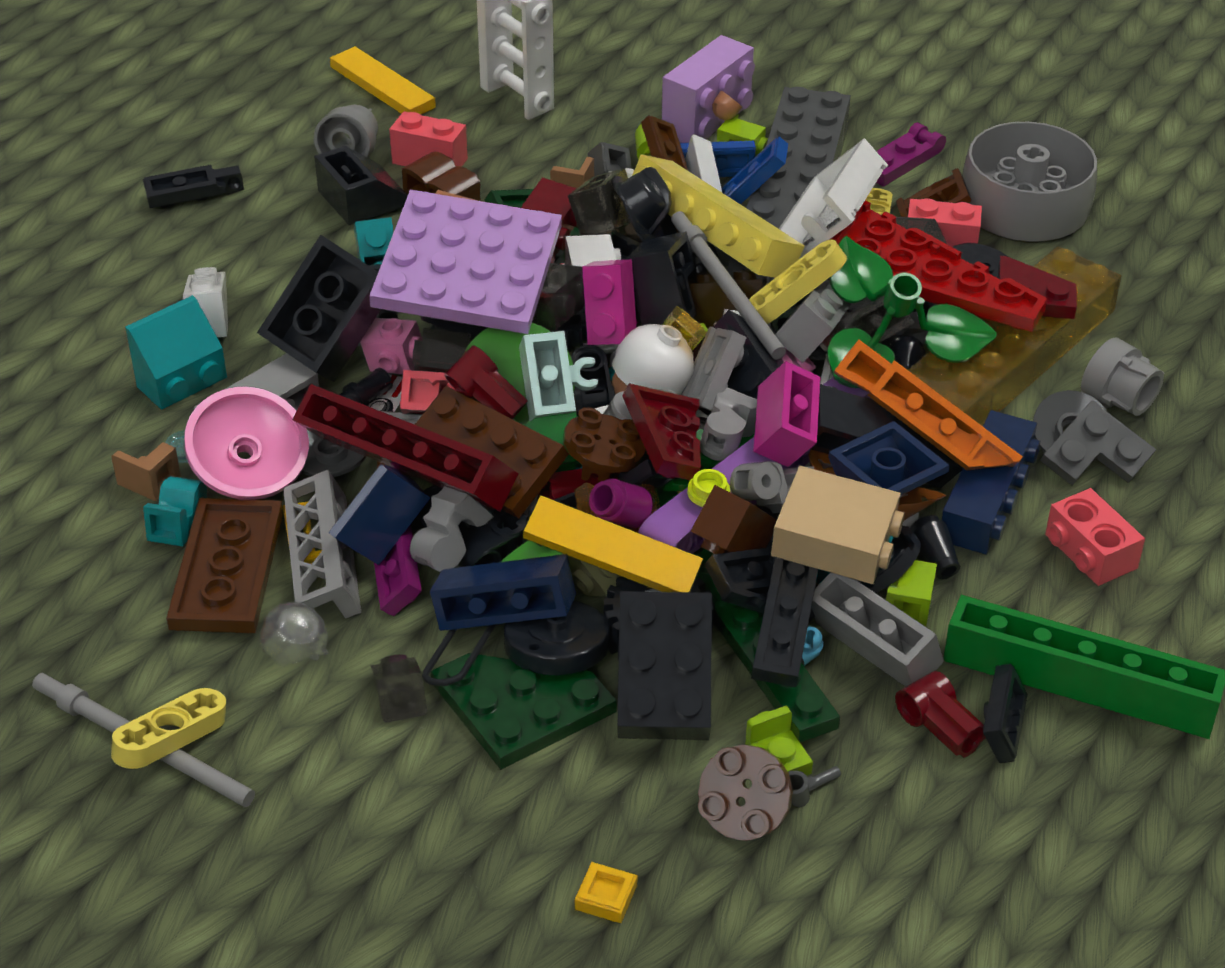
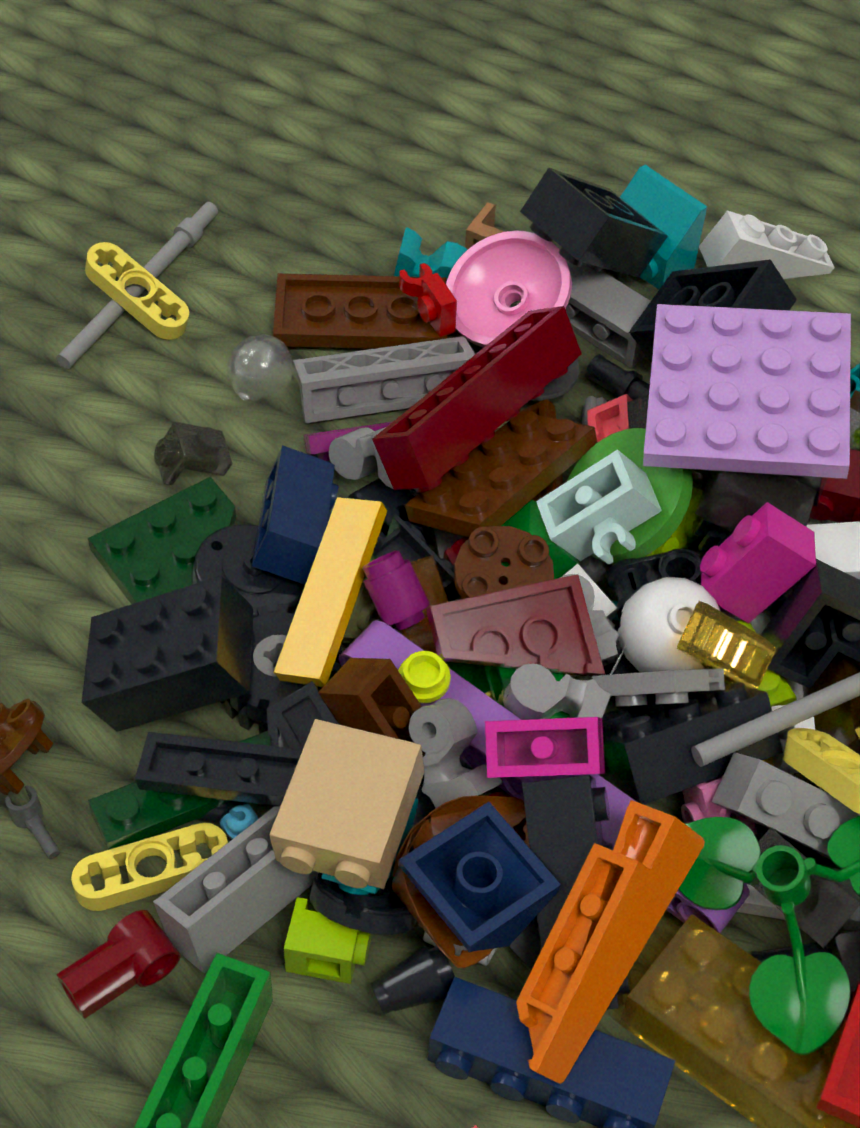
camera: 85 degrees right, 10 degrees up
(200, 366) = (592, 224): none -> black brick
(248, 494) = (434, 300): none -> red plate
(380, 513) = (388, 386): dark blue slope -> none
(444, 682) = (215, 501): black piece -> none
(479, 379) = (591, 440): dark red piece -> none
(774, 733) = (71, 788): lime bracket -> none
(850, 686) = (140, 887): none -> light yellow beam
(1005, 713) = (109, 1037): black plate -> none

